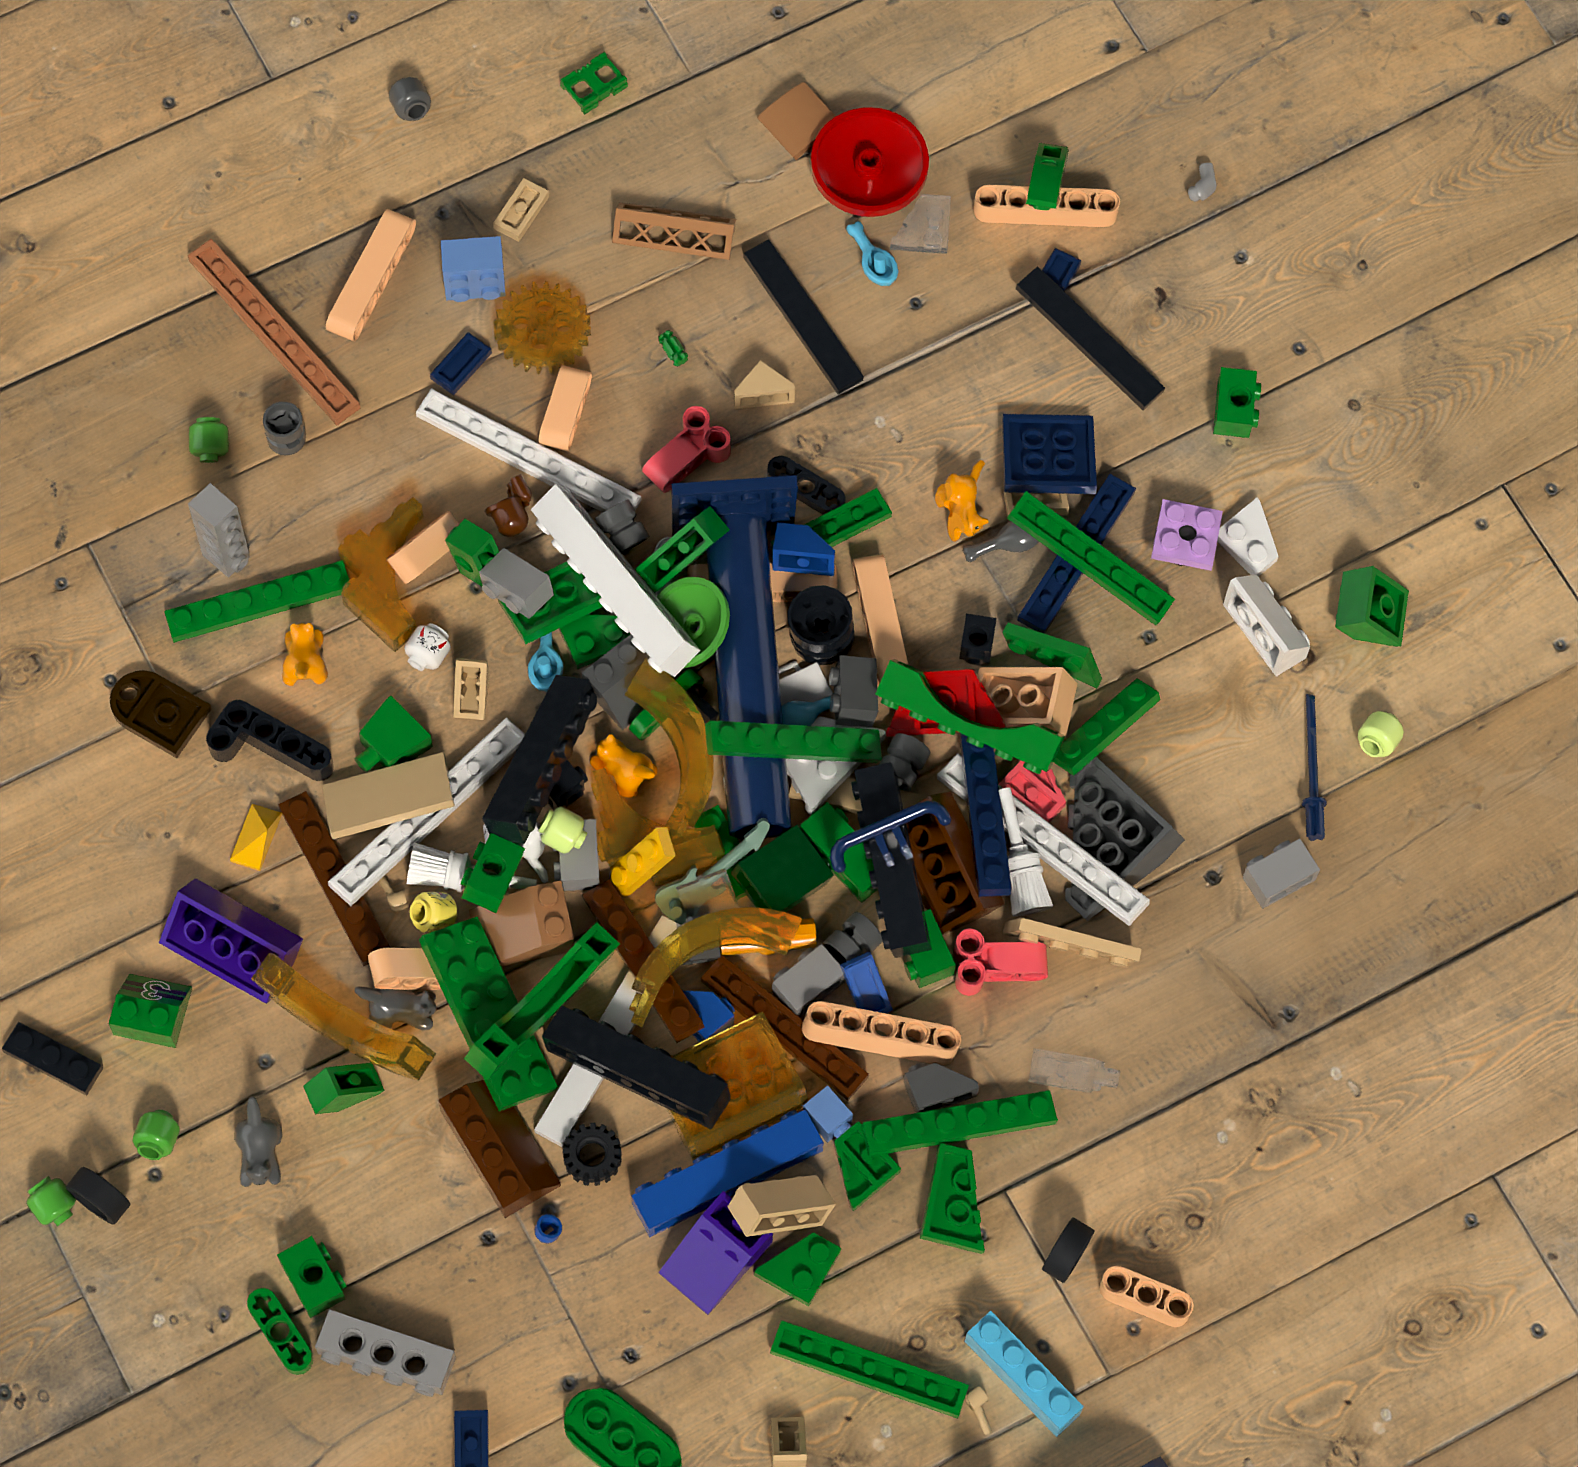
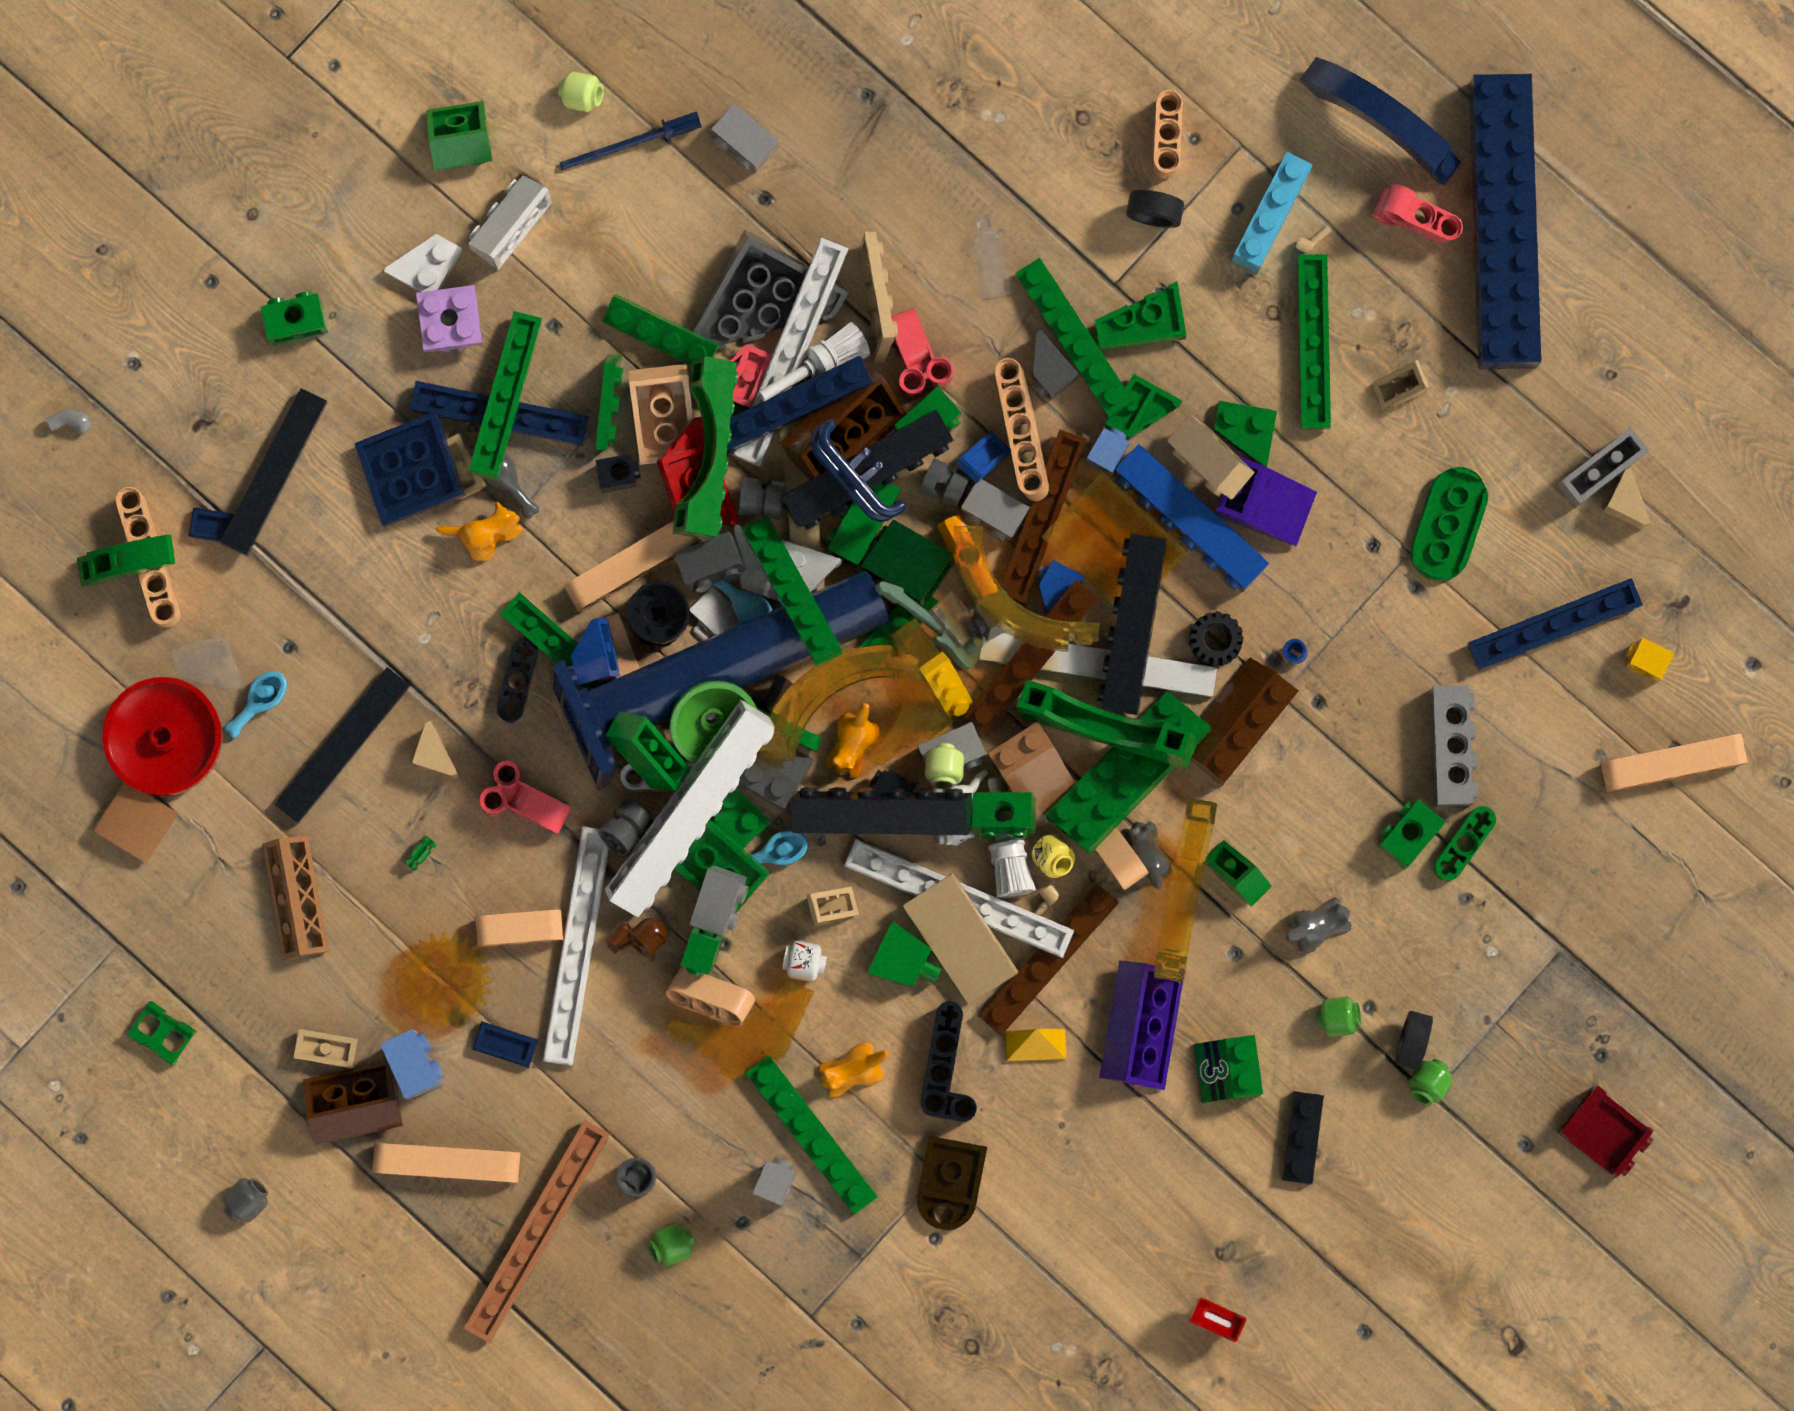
camera: 110 degrees left, 15 degrees up
(459, 206) = (352, 1103): none -> reddish brown slope

